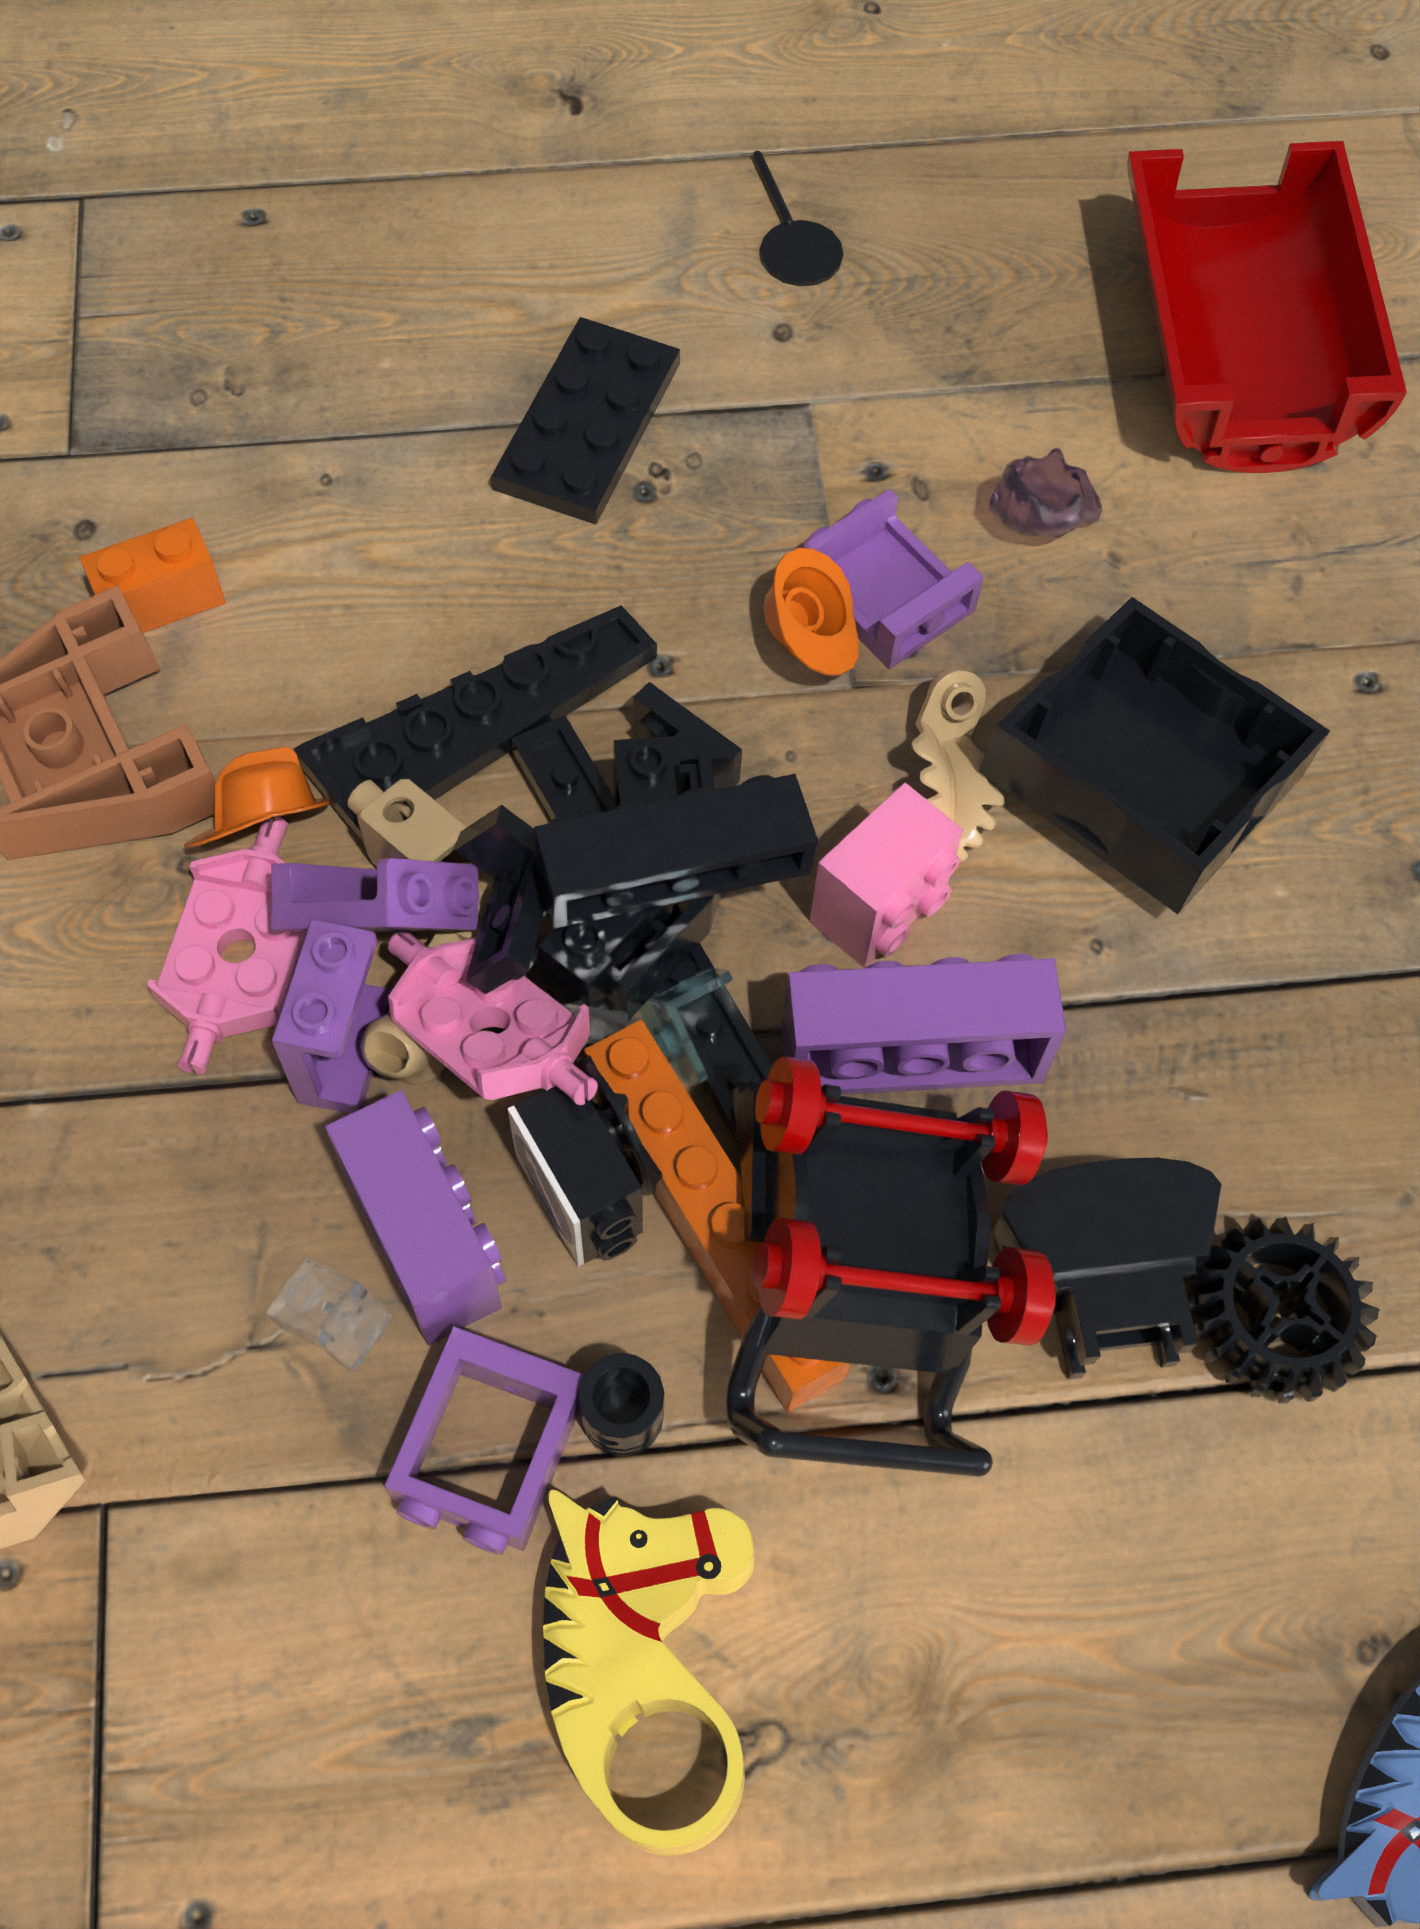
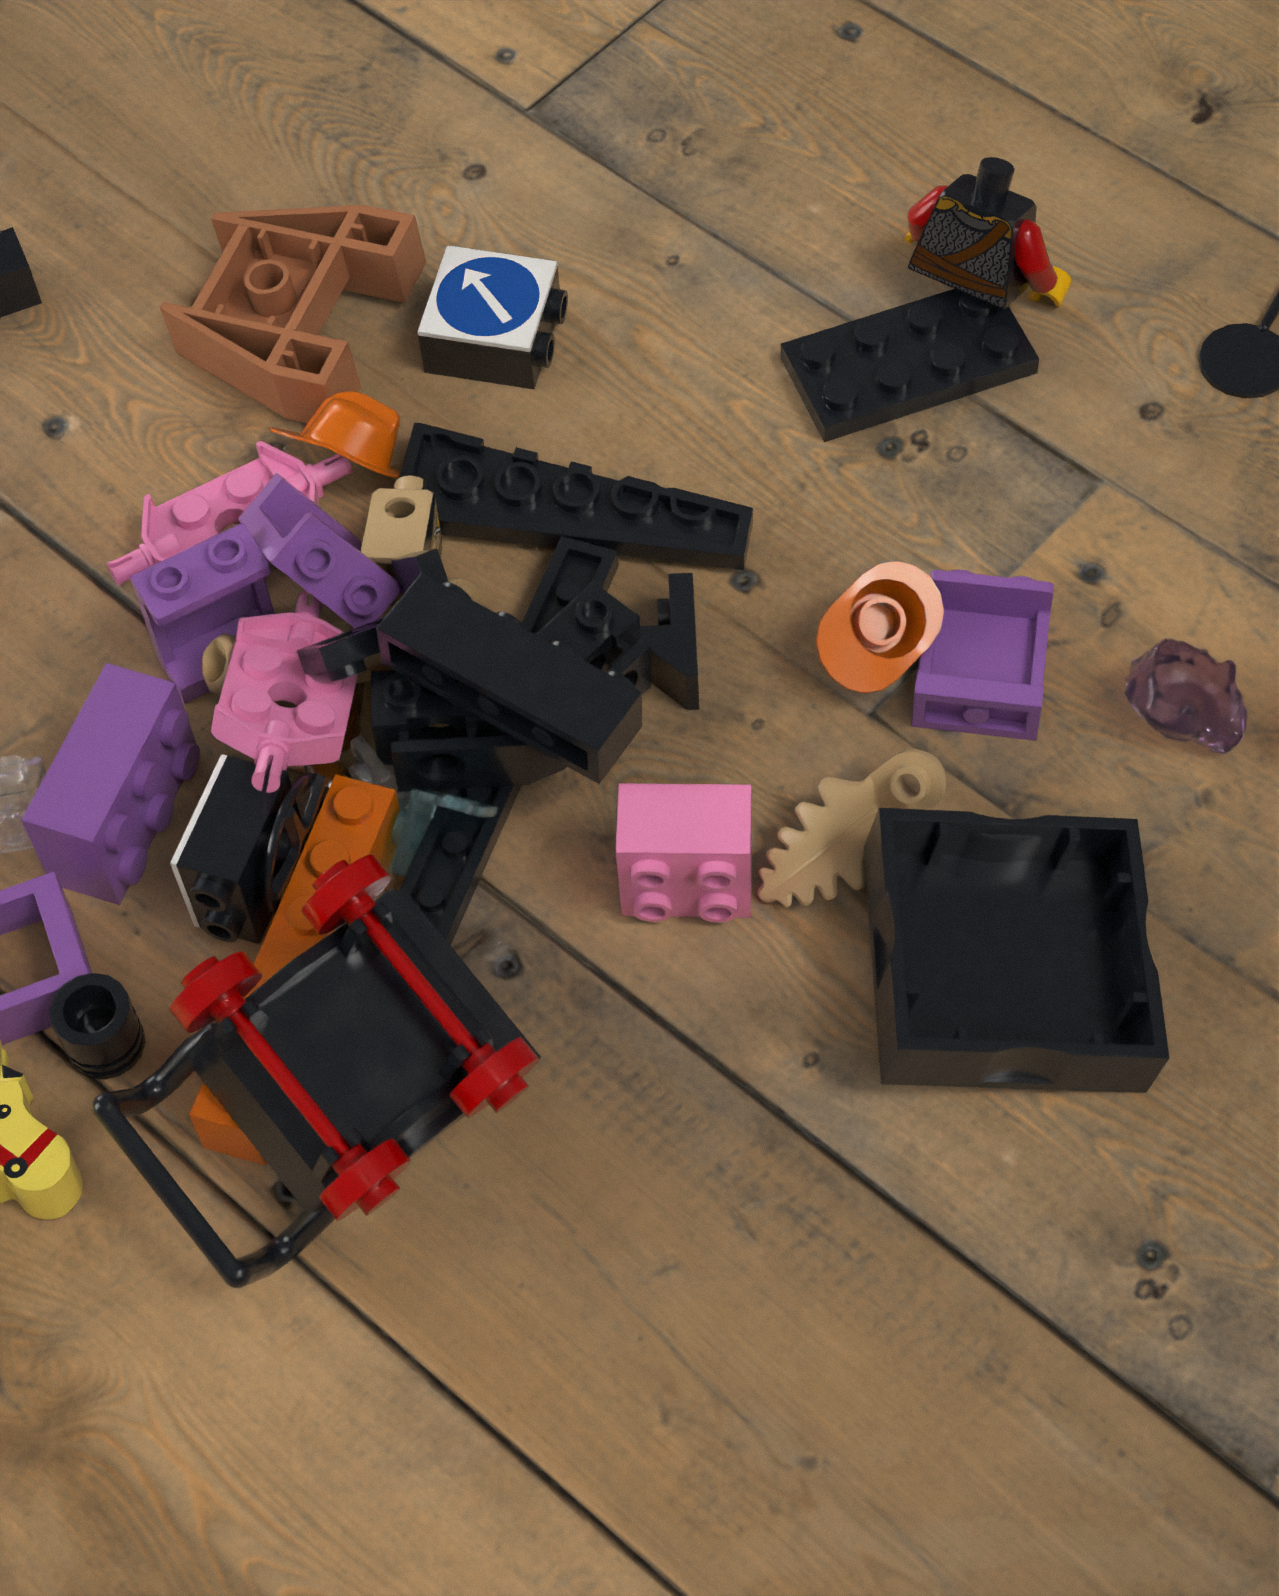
camera: 55 degrees right, 5 degrees down
(159, 573) = (464, 221): orange brick -> none
(254, 622) = (492, 317): none -> piece
(561, 285) = (984, 239): none -> torso
(926, 1023) = (577, 972): medium lavender brick -> none
(1118, 1251) = (510, 1249): black piece -> none
(1305, 1325) = (624, 1423): black gear -> none

